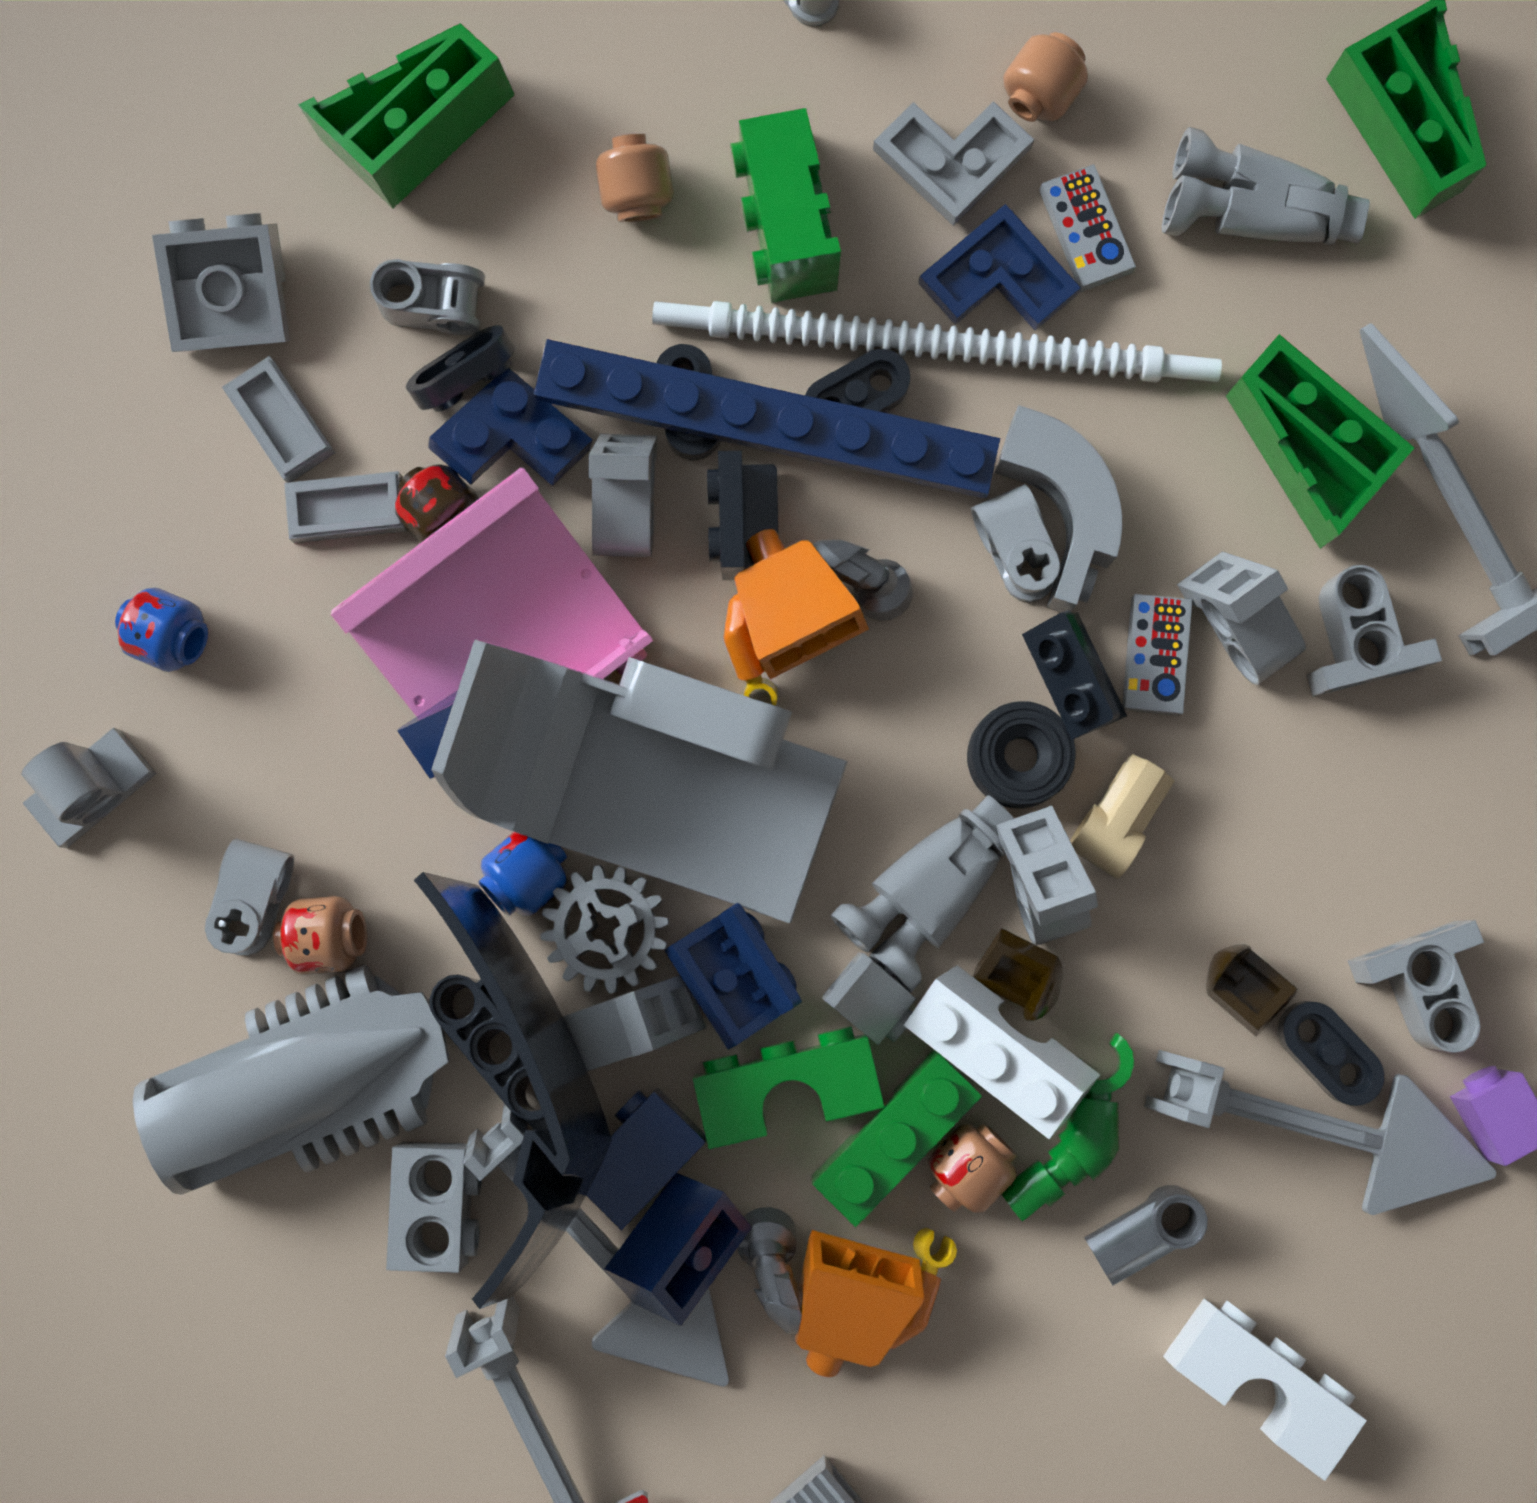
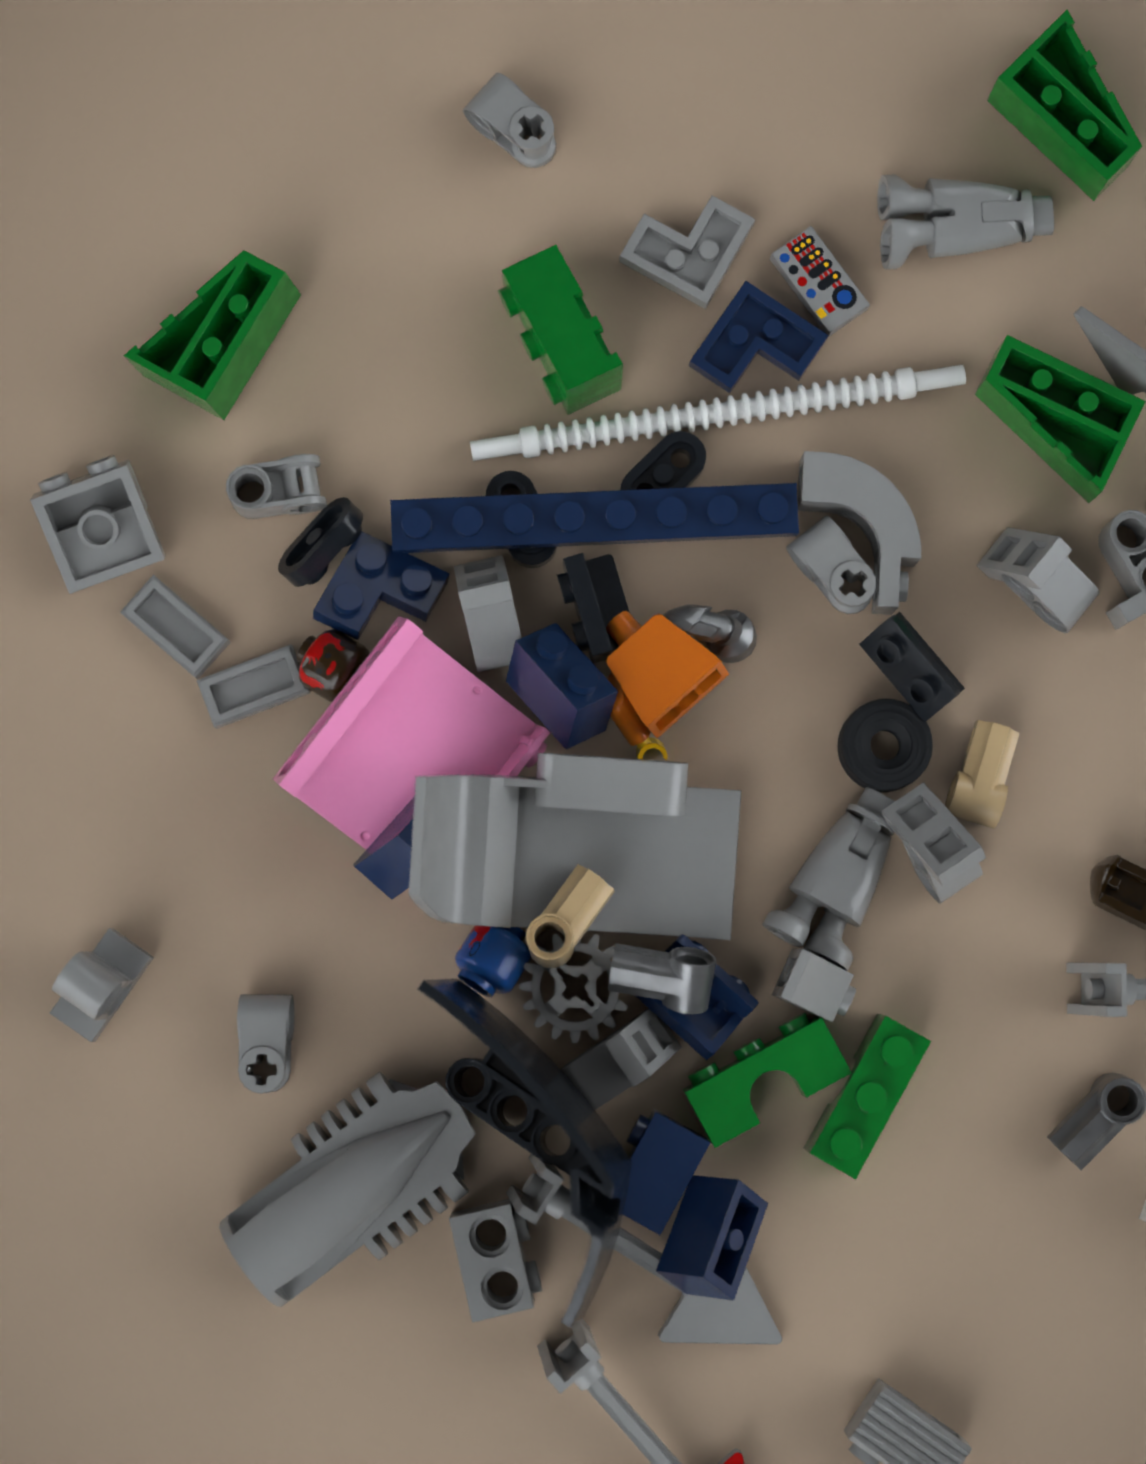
camera: 15 degrees left, 0 degrees up
(161, 629) = (128, 833): blue head -> none
(320, 935) = (336, 1057): nougat head -> none
(618, 844) = (570, 913): none -> tan piece
(634, 178) = (424, 341): nougat head -> none
(678, 592) = (561, 685): none -> dark blue brick
(716, 948) = (677, 978): none -> flat silver piece
(850, 1295) = (865, 1237): orange torso -> none
(972, 1168) = (938, 1104): nougat head -> none
(1021, 974) = (934, 930): dark brown plate -> none
(1029, 1077) = (965, 1014): white arch -> none
(1045, 77) = (750, 163): nougat head -> none
(1085, 1145) = (1028, 1055): green piece -> none
(1157, 654) = (976, 629): tile -> none

